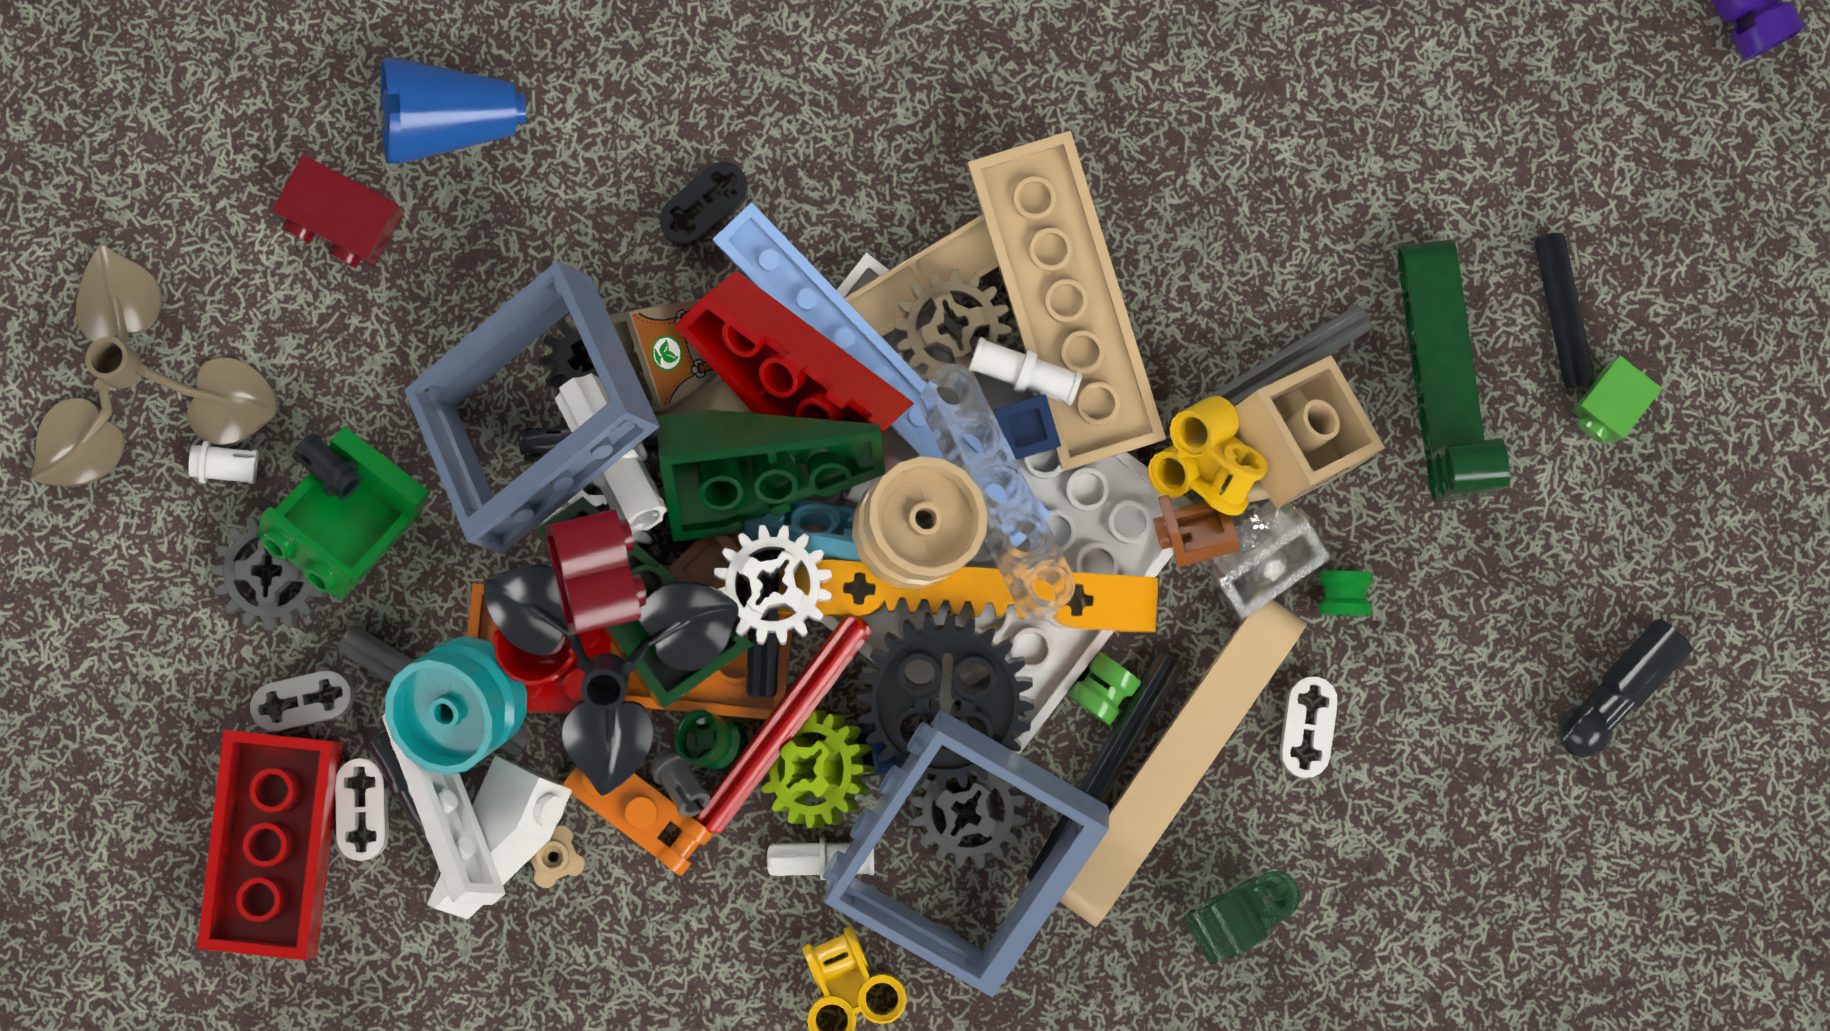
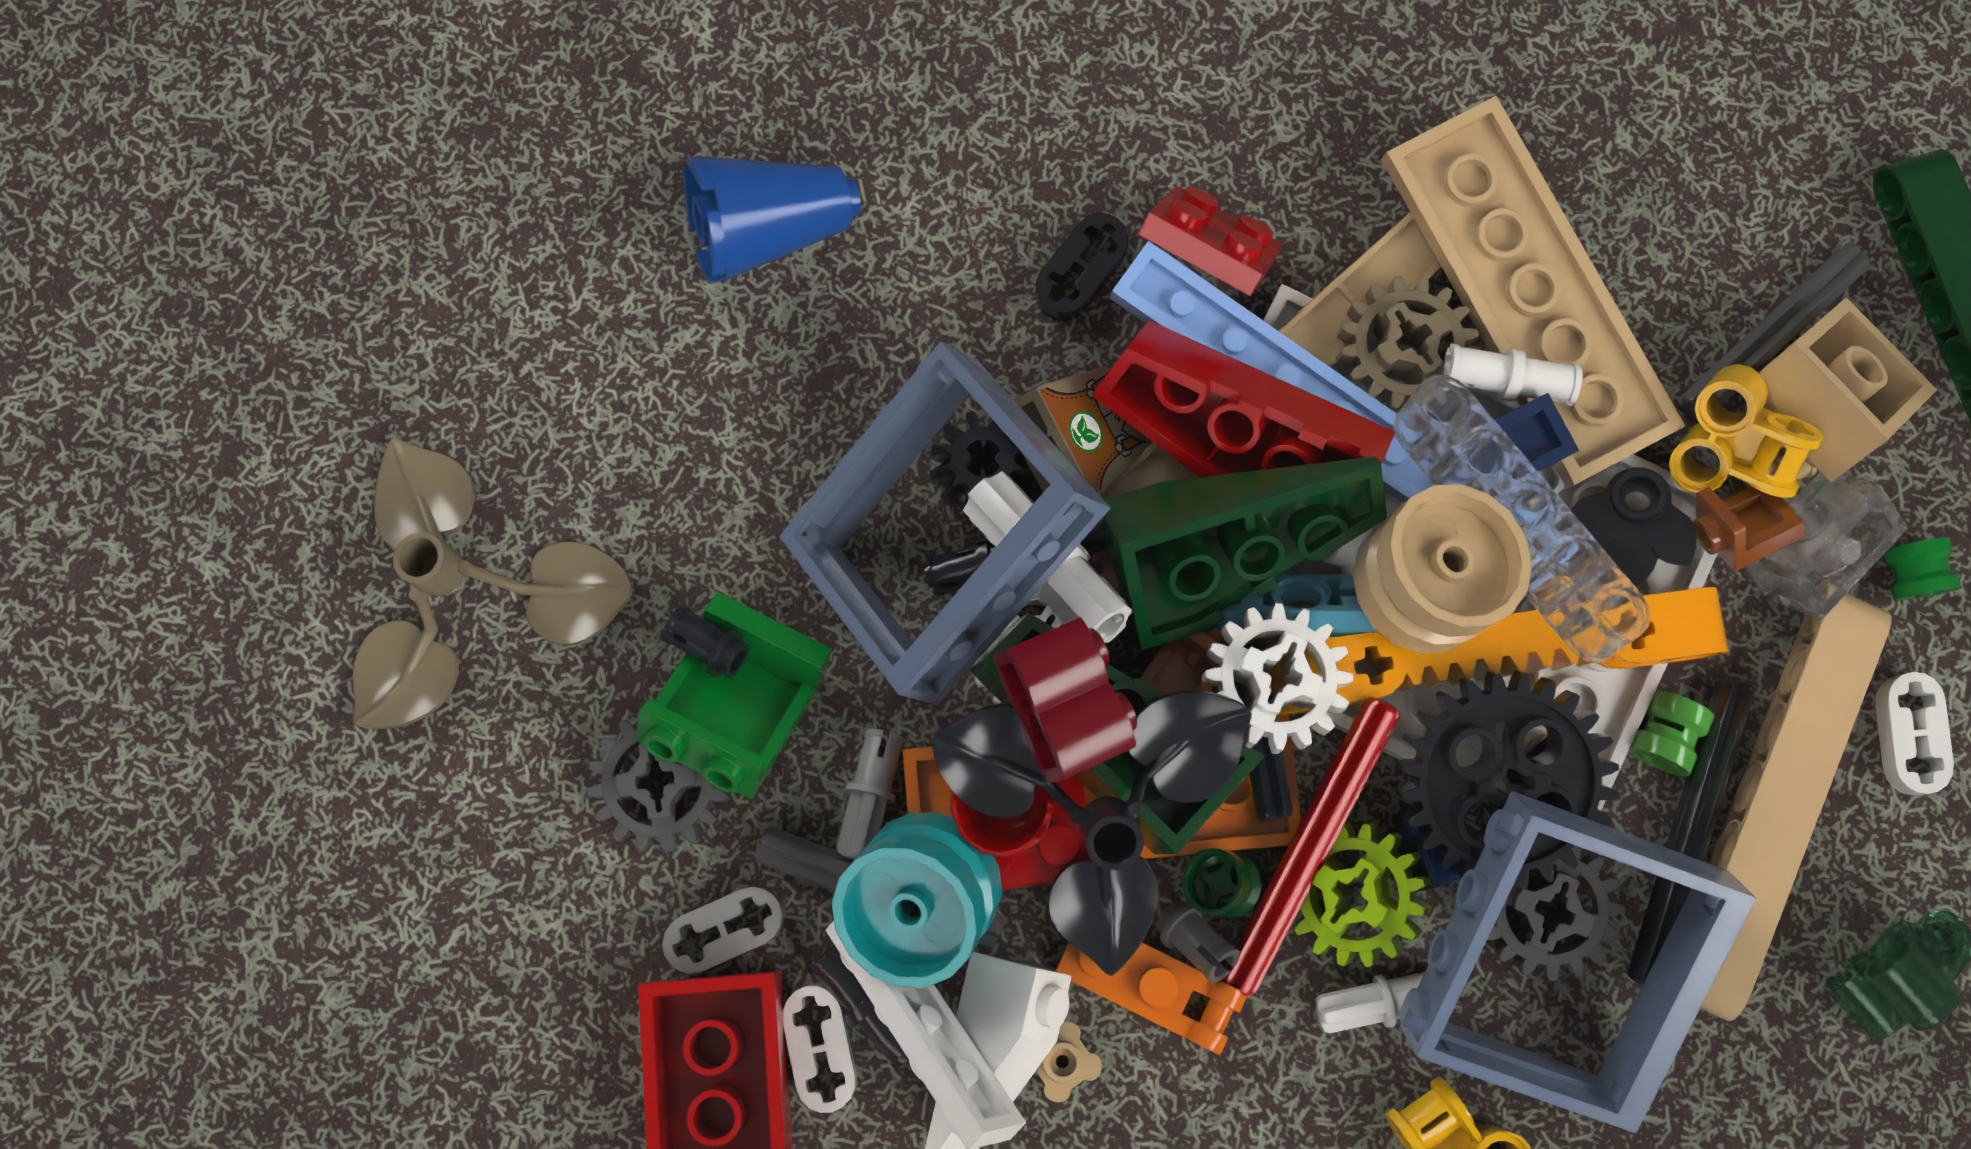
camera: 10 degrees left, 5 degrees down
(223, 463) = (579, 665): white pin -> none
(337, 212) = (662, 350): dark red brick -> none
(440, 611) = (869, 793): none -> light grey axle
(812, 205) = (1211, 239): none -> red plate
(1101, 523) = (1638, 537): none -> black plate

